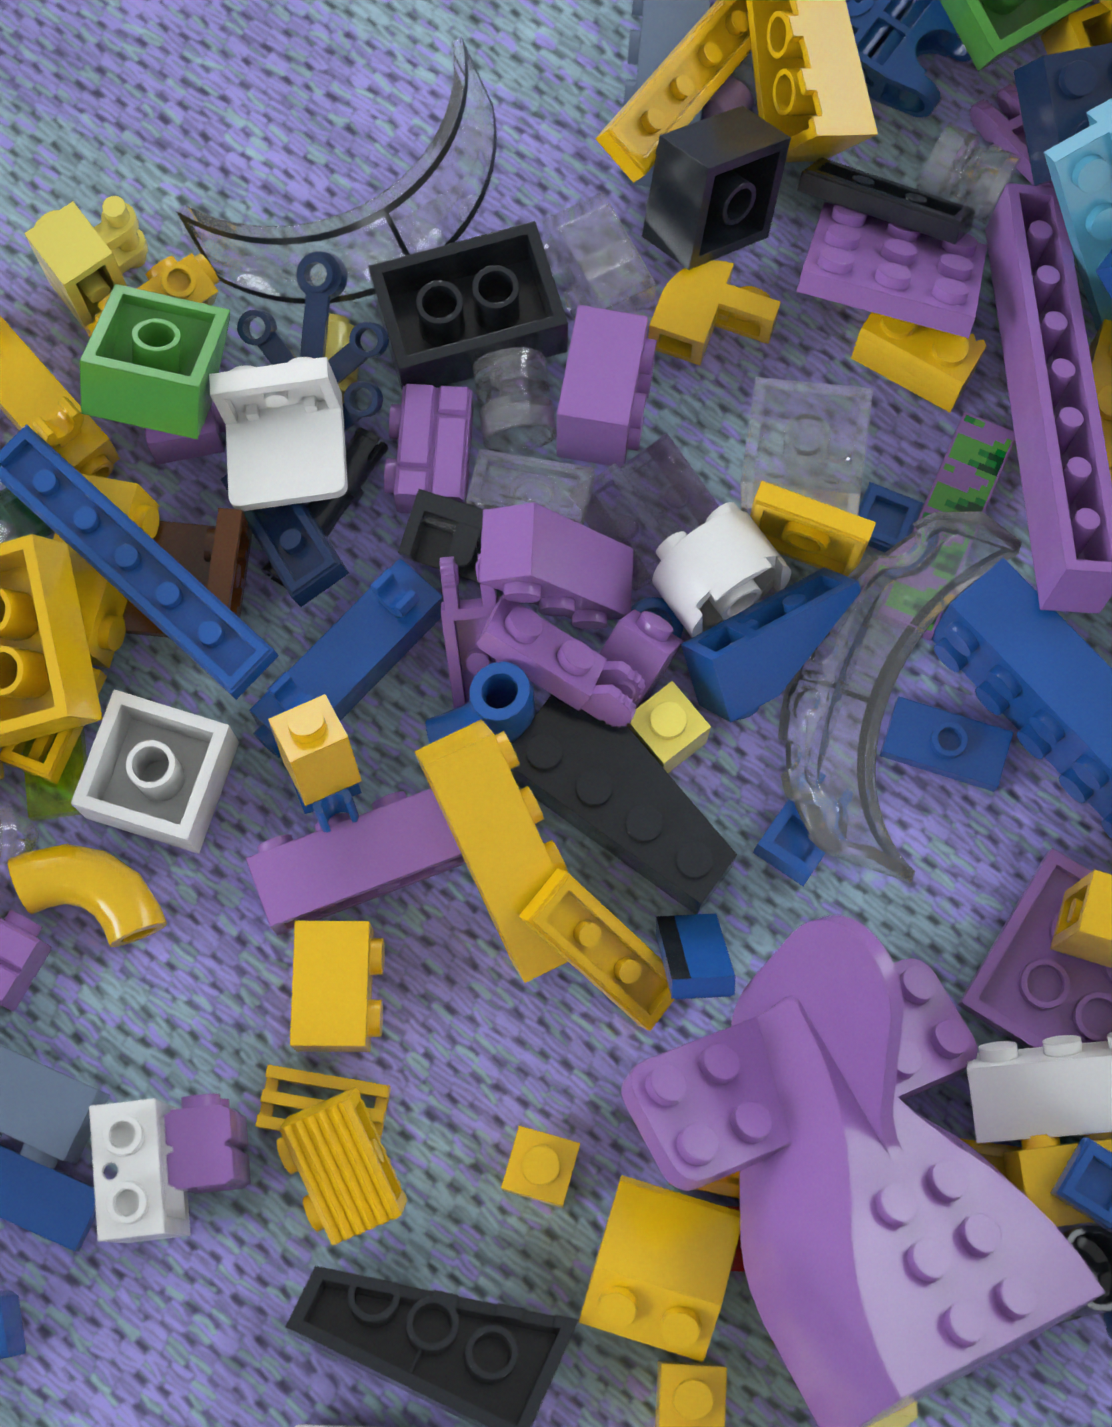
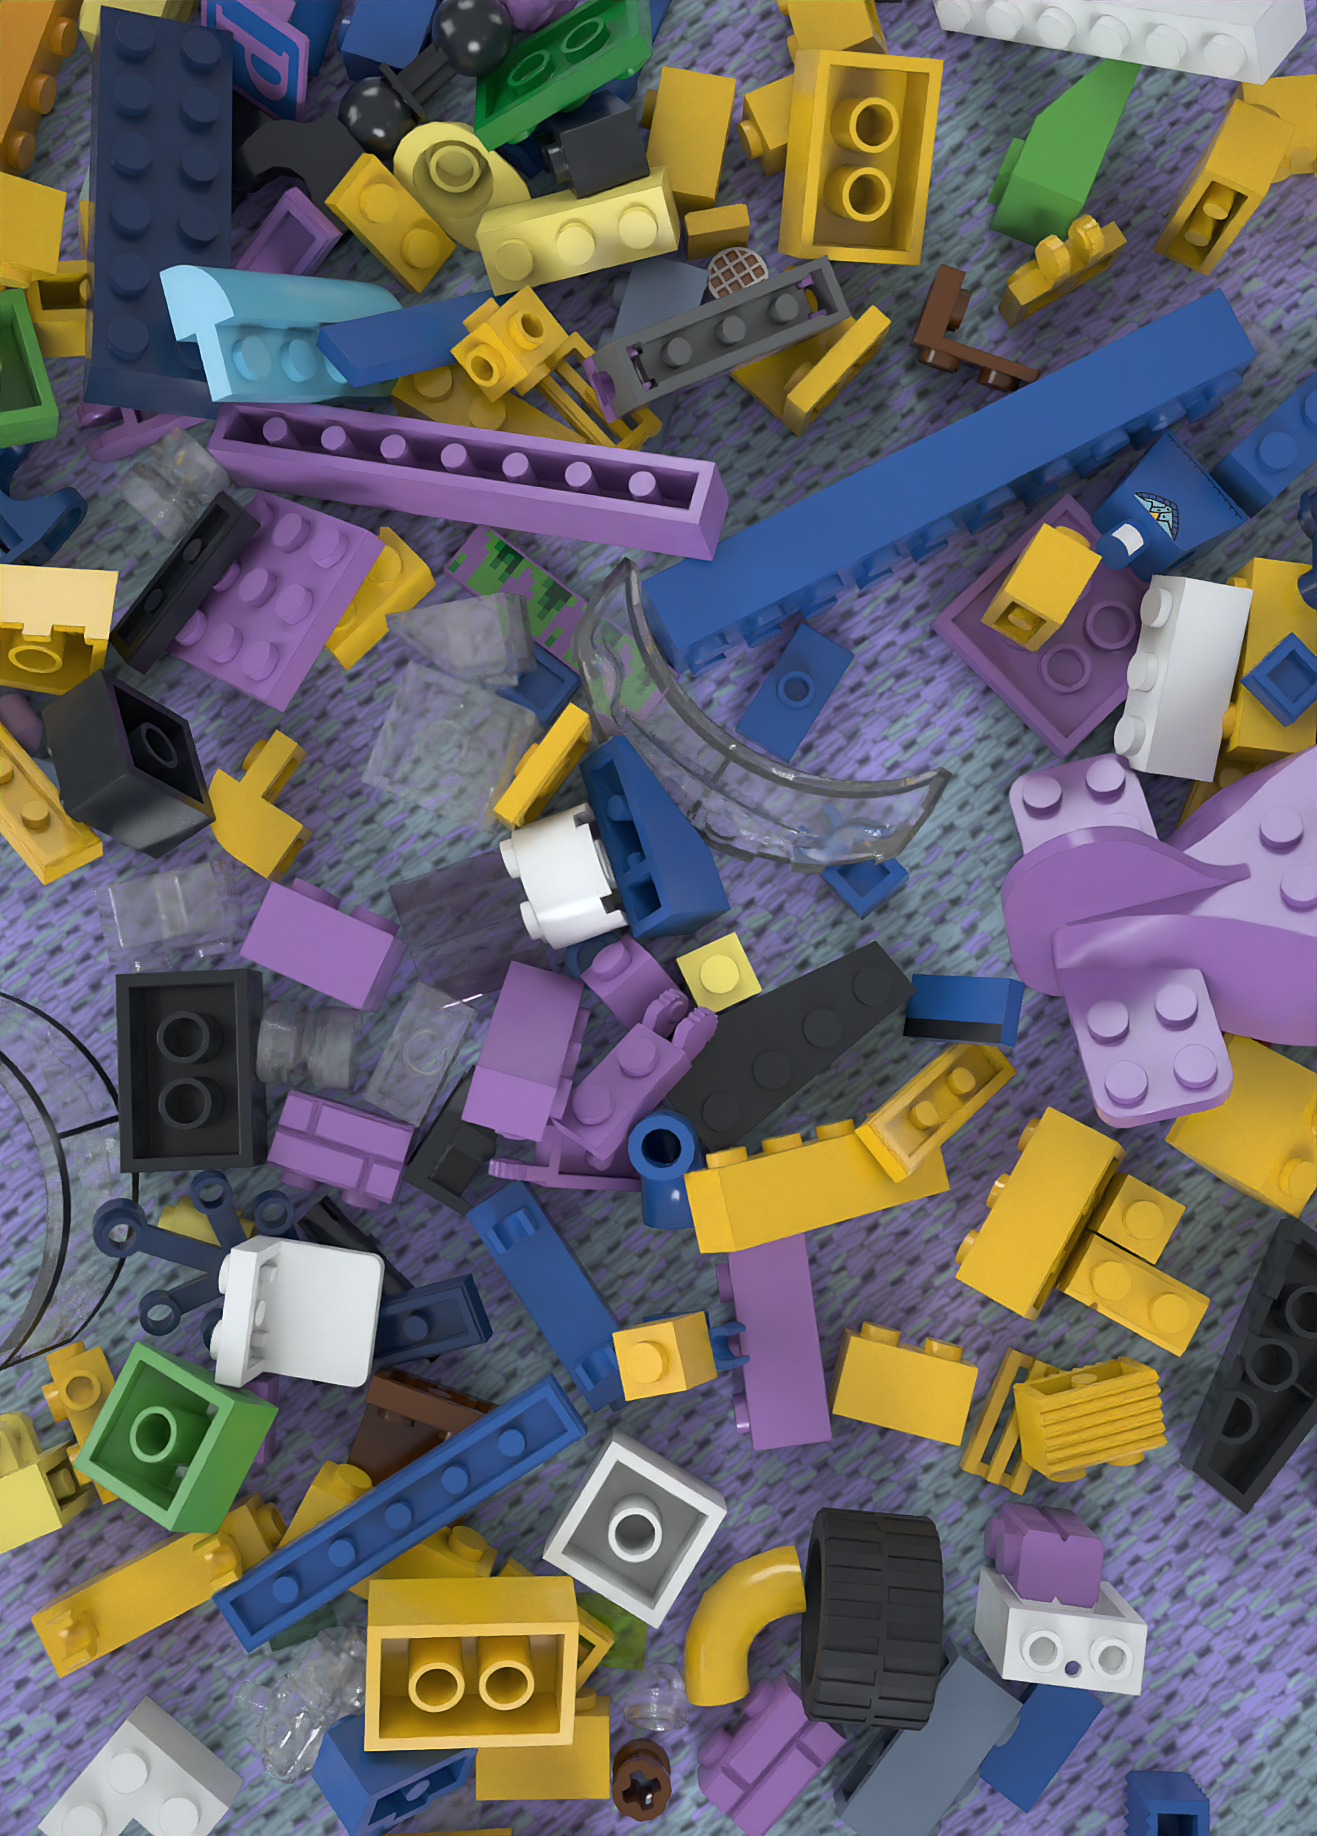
camera: 85 degrees left, 10 degrees up
(117, 987) = (872, 1619): none -> black tyre
(468, 1180) = (1133, 1293): none -> yellow brick
(521, 1076) = (1039, 1212): none -> yellow brick
(910, 446) = (473, 638): none -> clear slope

